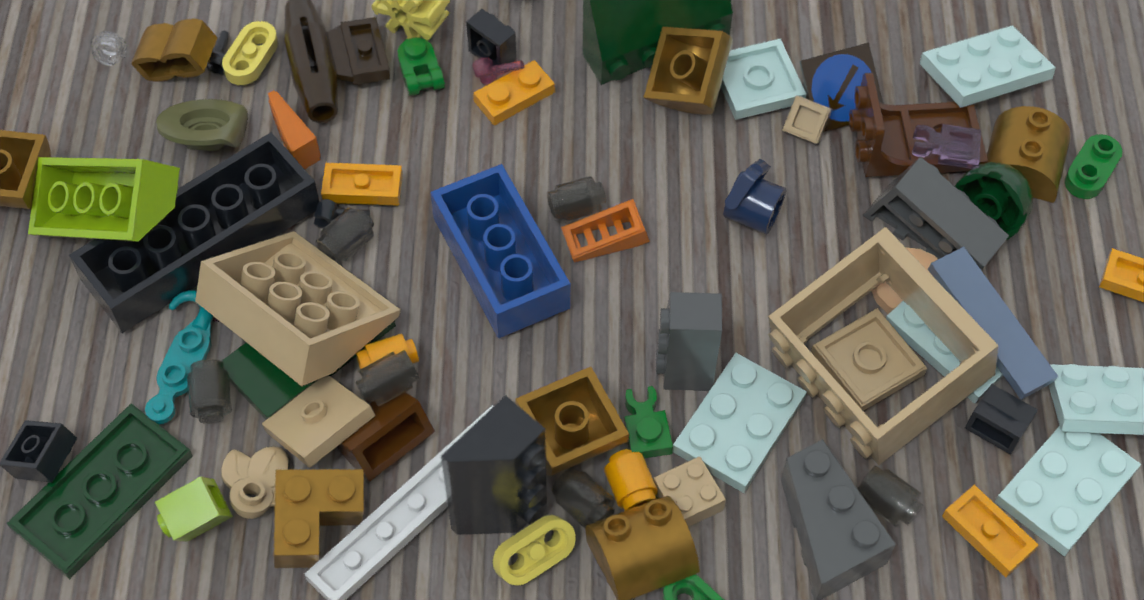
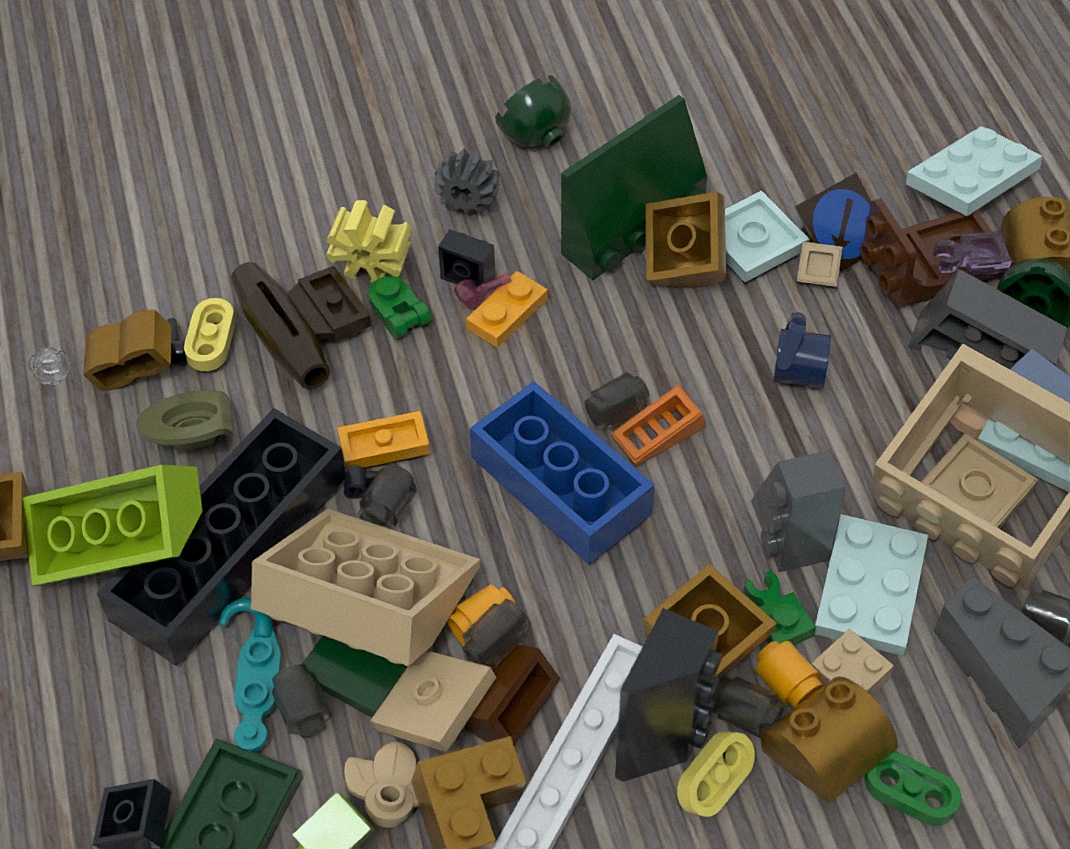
camera: 15 degrees left, 5 degrees down
(294, 133) = (288, 399): orange slope -> none

